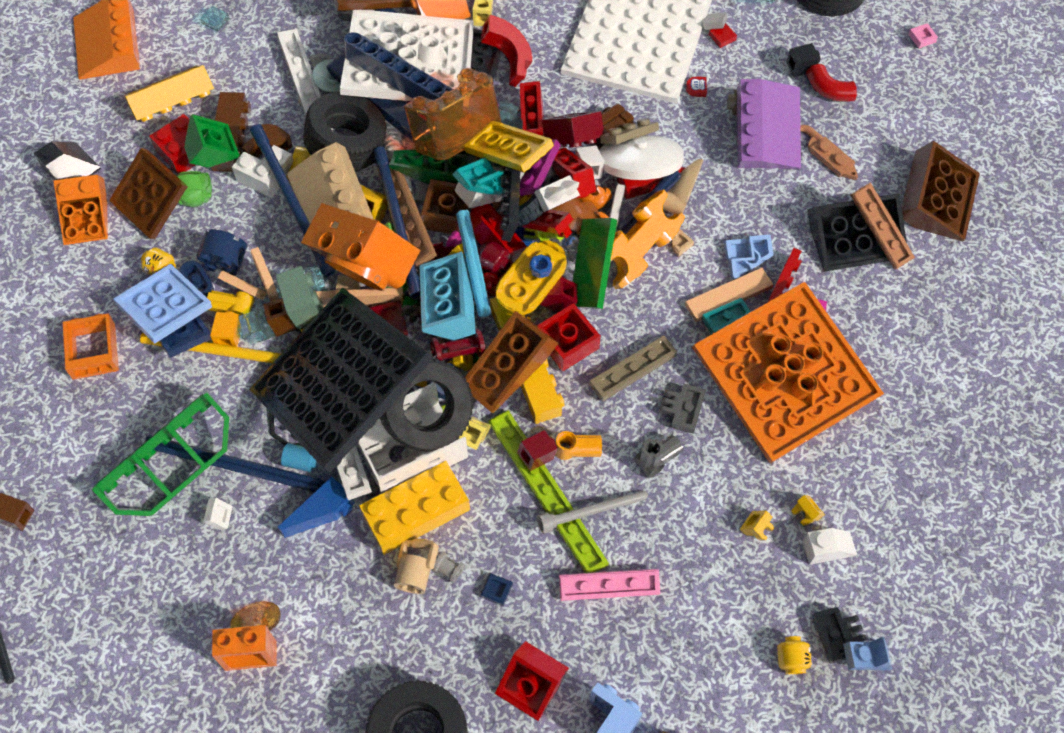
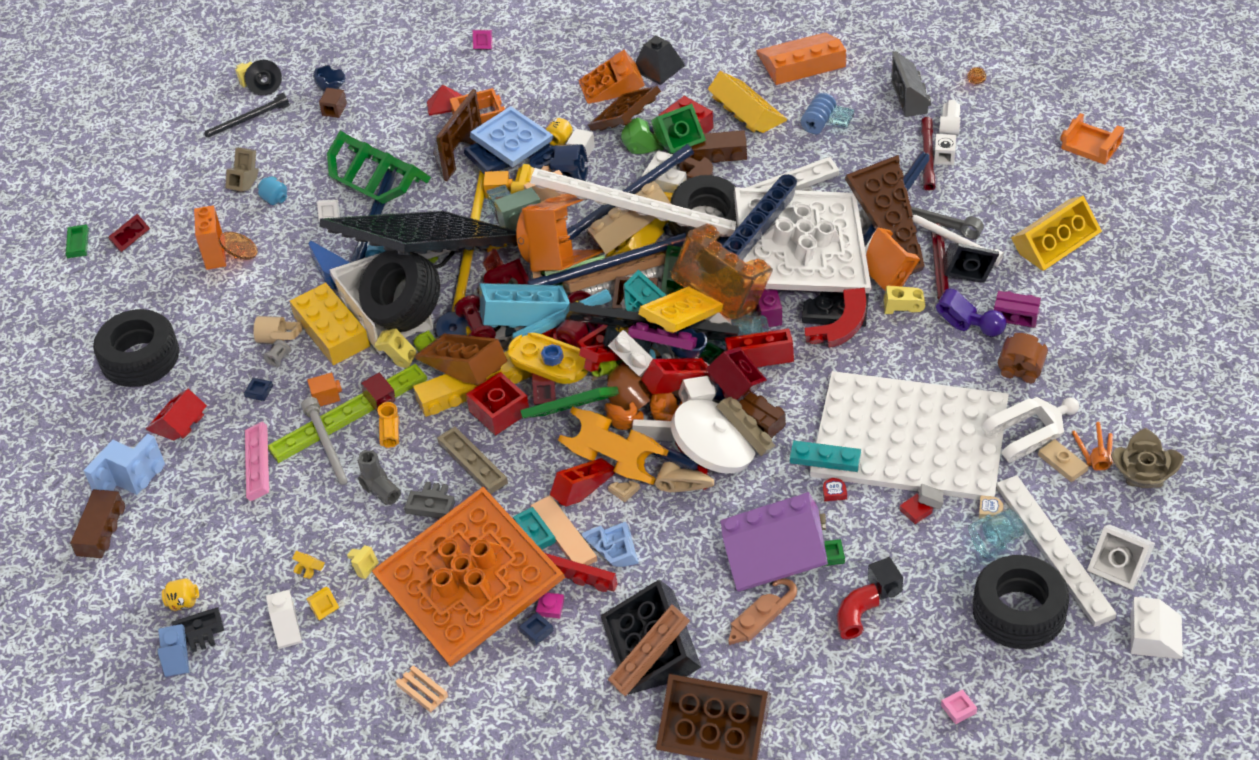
camera: 90 degrees right, 15 degrees down
(54, 385) = (440, 100): none -> red slope
(115, 620) = (244, 172): none -> dark tan brick
(145, 362) = (455, 131): none -> reddish brown slope
(161, 582) = (272, 190): none -> dark azure head
(183, 244) = (583, 137): none -> white brick
(208, 34) = (818, 113): none -> medium blue piece
(349, 172) = (624, 201): none -> white plate
(516, 512) = (325, 389): none -> orange brick
(668, 82) = (825, 456): none -> teal plate
(675, 272) = (580, 481): none -> red slope
(759, 470) = (363, 561): none -> light yellow tile
(844, 319) = (536, 628): none -> dark blue plate
(919, 408) = (401, 683): none -> light nougat tile

